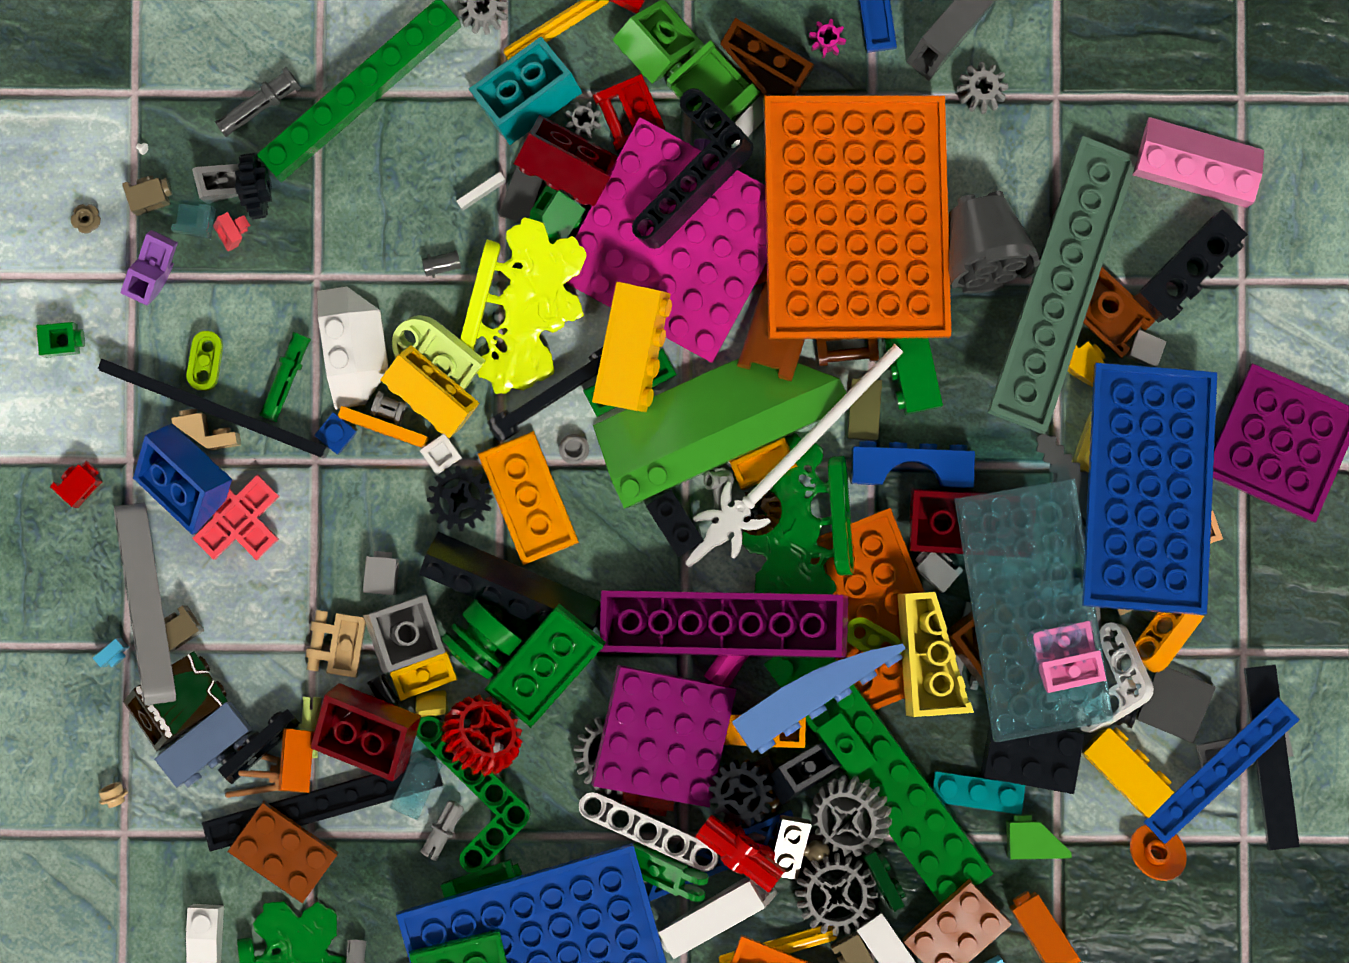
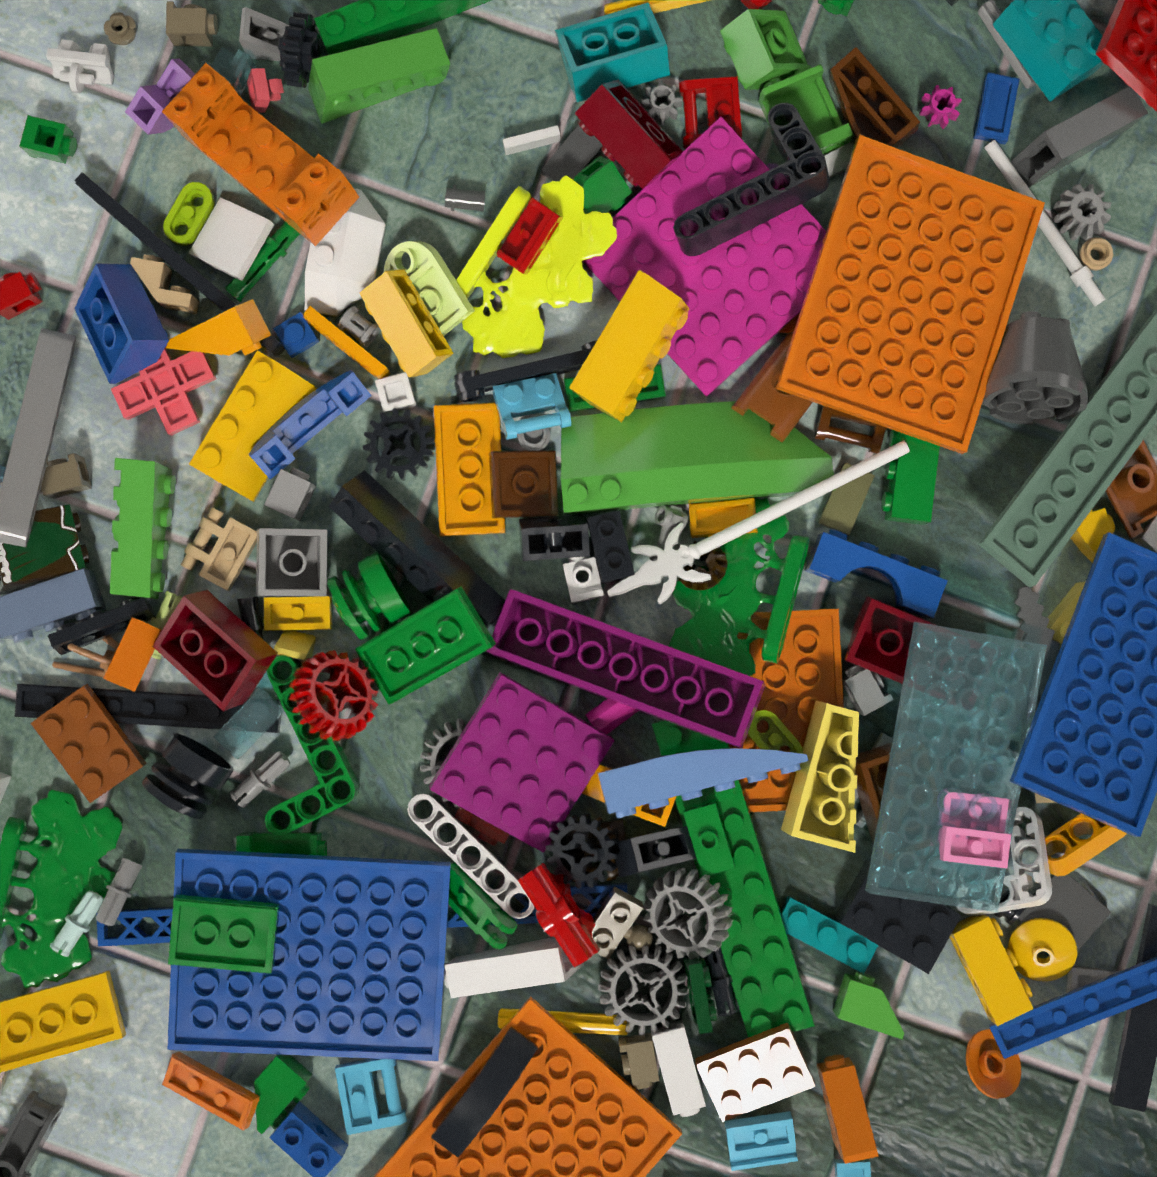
camera: 15 degrees right, 0 degrees up
(63, 266) = (80, 67): none -> white hips
(250, 370) = (231, 238): none -> white tile
(254, 291) = (259, 156): none -> orange plate
(263, 650) = (141, 528): none -> bright green wedge
(276, 456) = (226, 333): none -> light orange slope
(327, 181) = (376, 73): none -> bright green wedge
(329, 527) = (252, 408): none -> yellow slope
(371, 506) = (306, 420): none -> slope
(380, 849) = (185, 781): none -> black wheel
(510, 281) = (529, 236): none -> red hinge
(557, 419) = (528, 398): none -> medium azure plate
(580, 495) = (523, 484): none -> reddish brown plate
(623, 532) = (554, 537): none -> black brick
(668, 567) = (582, 591): none -> white brick
(901, 865) = (721, 983): none -> black pin
(1000, 142) = (1080, 275): none -> white bar
(1014, 112) = (1104, 249): none -> tan plate
(1164, 727) = (1047, 936): none -> yellow dish

